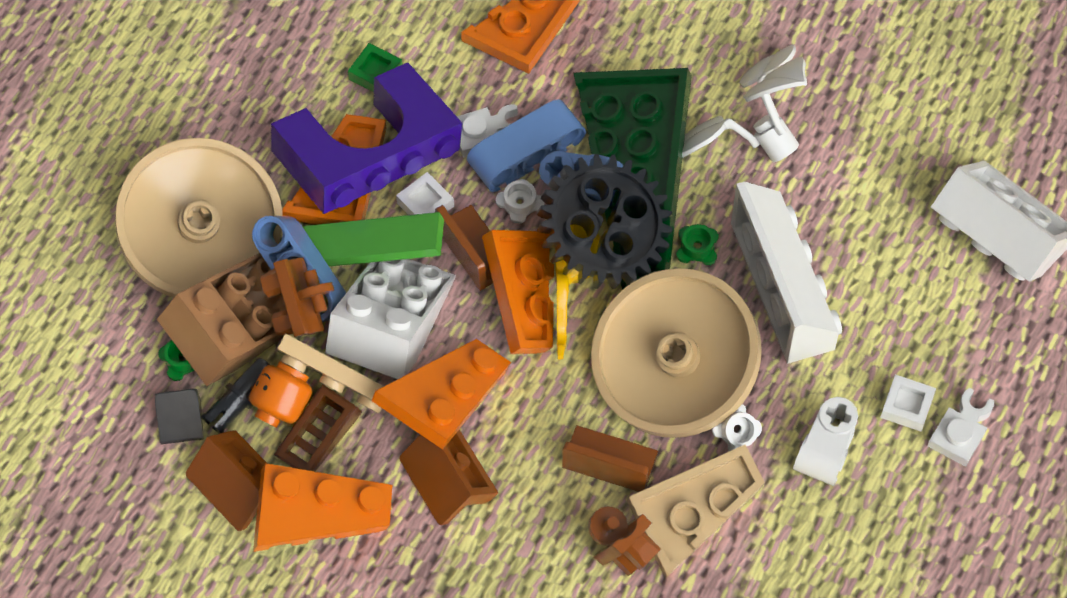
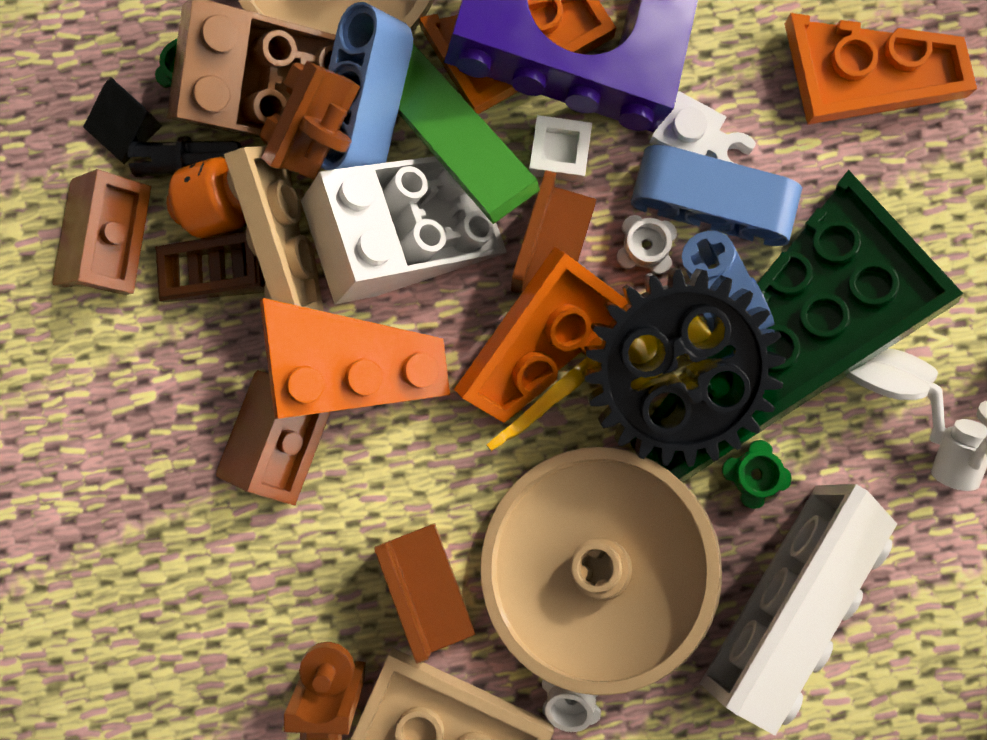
camera: 50 degrees right, 20 degrees up
(317, 505) = (114, 341): orange wing -> none

